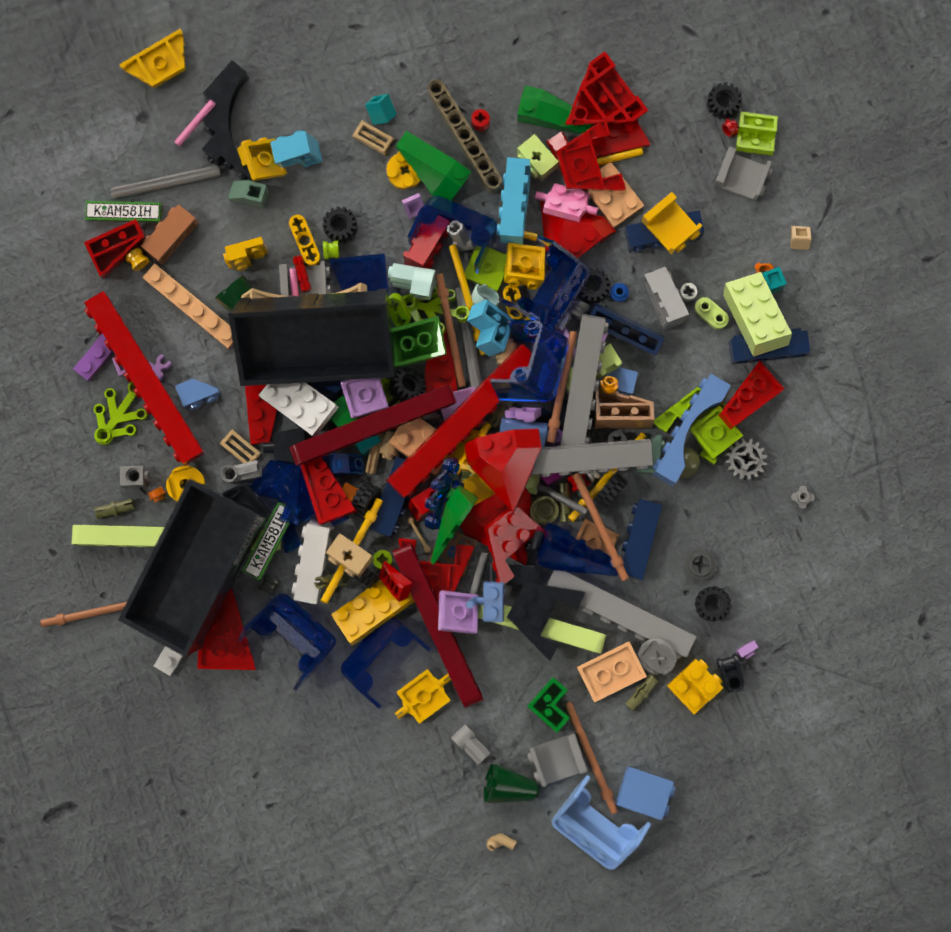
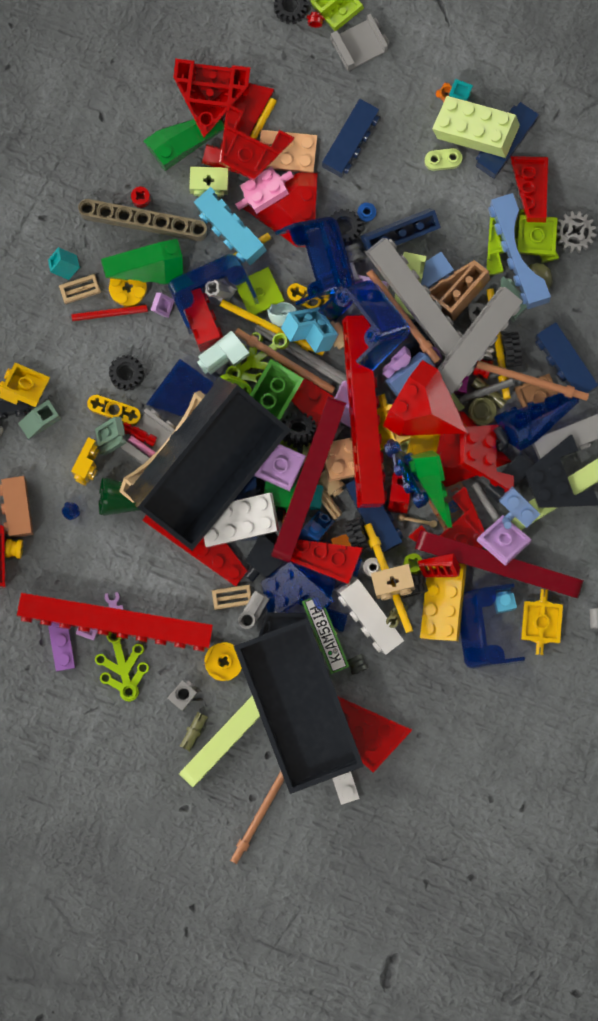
camera: 50 degrees left, 0 degrees up
(157, 494) = (211, 690): orange plate -> none
(189, 305) = (87, 539): light nougat plate -> none
(194, 393) = (159, 592): medium blue slope -> none
(201, 275) = (70, 511): none -> clear blue plate
(281, 252) = (110, 435): none -> sand green plate
(296, 149) = (40, 353): medium azure brick -> none
(298, 629) = (412, 670): clear blue windscreen -> none
(331, 250) = (140, 396): lime wheel -> none
(346, 527) = (367, 572): none -> white brick
(374, 174) = (109, 313): none -> red bar
(413, 654) = (505, 602): none -> medium azure brick
(501, 413) = (378, 373): olive pin -> none
(524, 265) = (284, 263): yellow plate -> none
(606, 387) = (432, 284): light orange plate -> none
(665, 298) = (402, 182): light grey wedge -> none
(671, 224) = (353, 128): yellow panel -> none
(691, 287) = (414, 167): white bush -> none
(800, 237) = (444, 44): tan slope -> none

